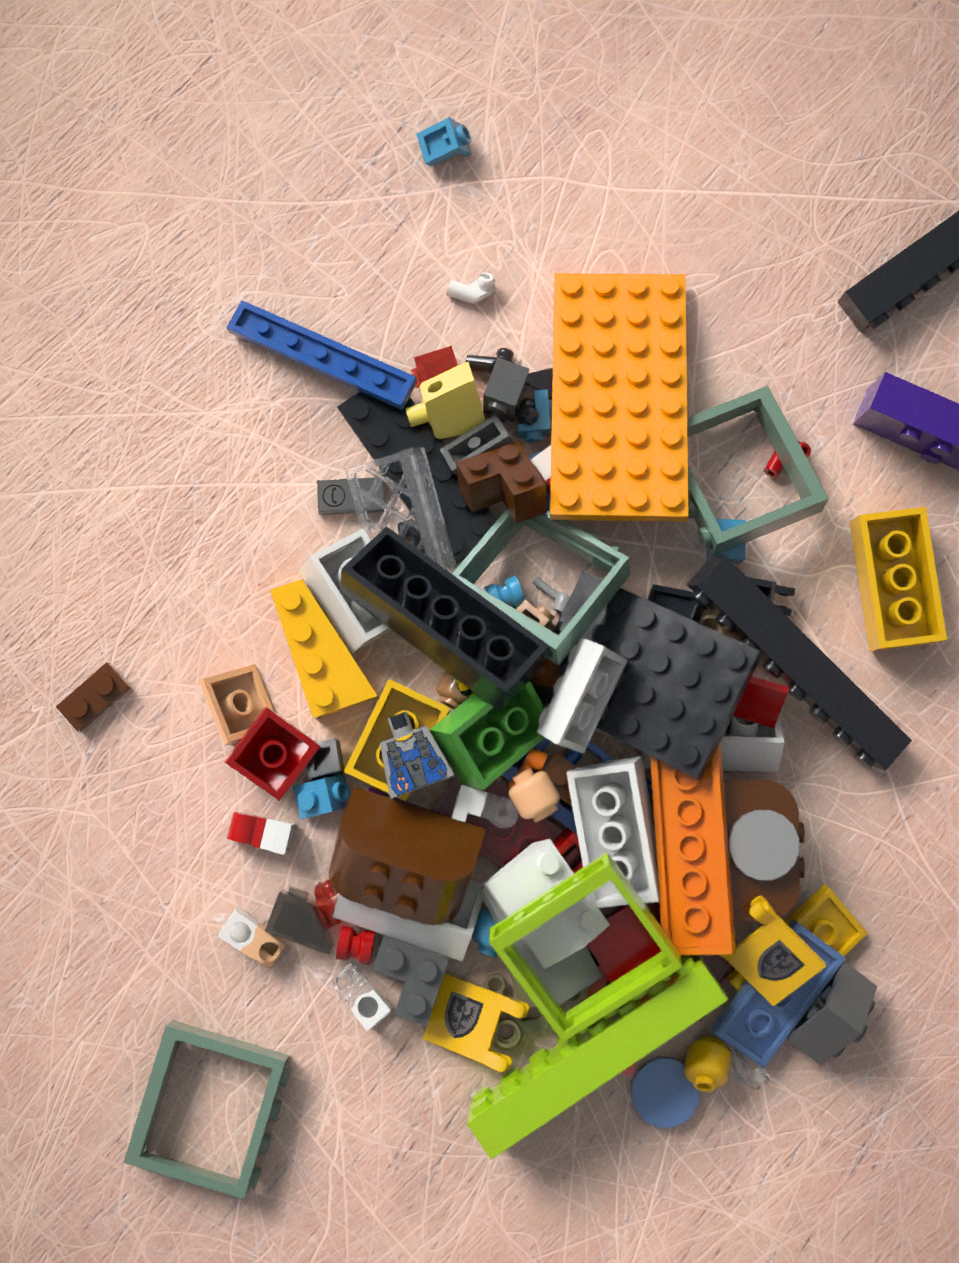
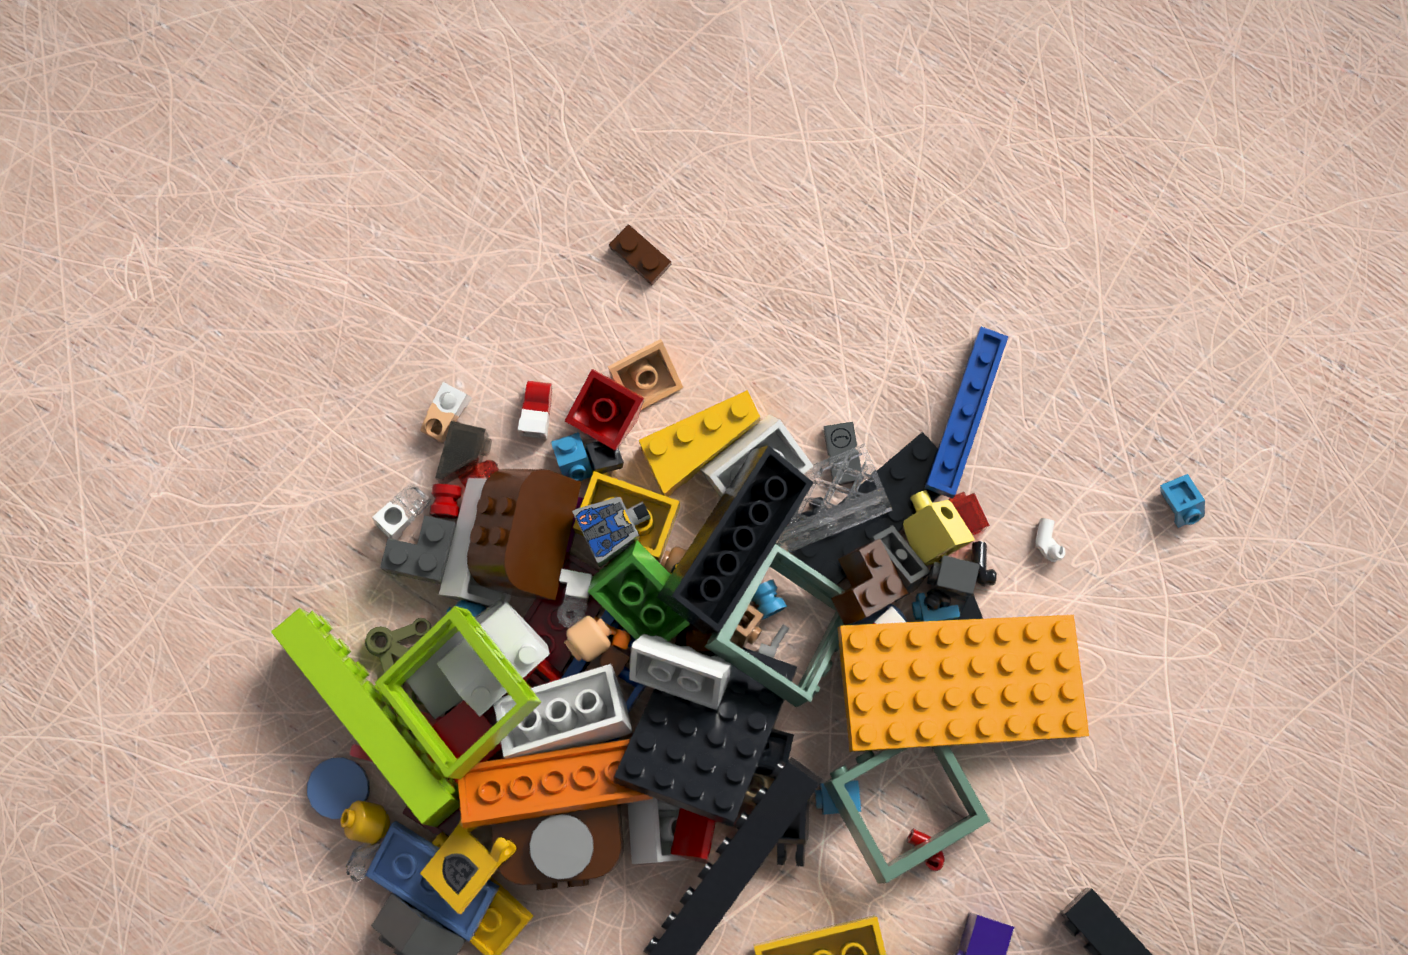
camera: 90 degrees right, 5 degrees down
(260, 1140) = (307, 346): sand green window -> none
(467, 1020) = (388, 605): yellow flag -> none

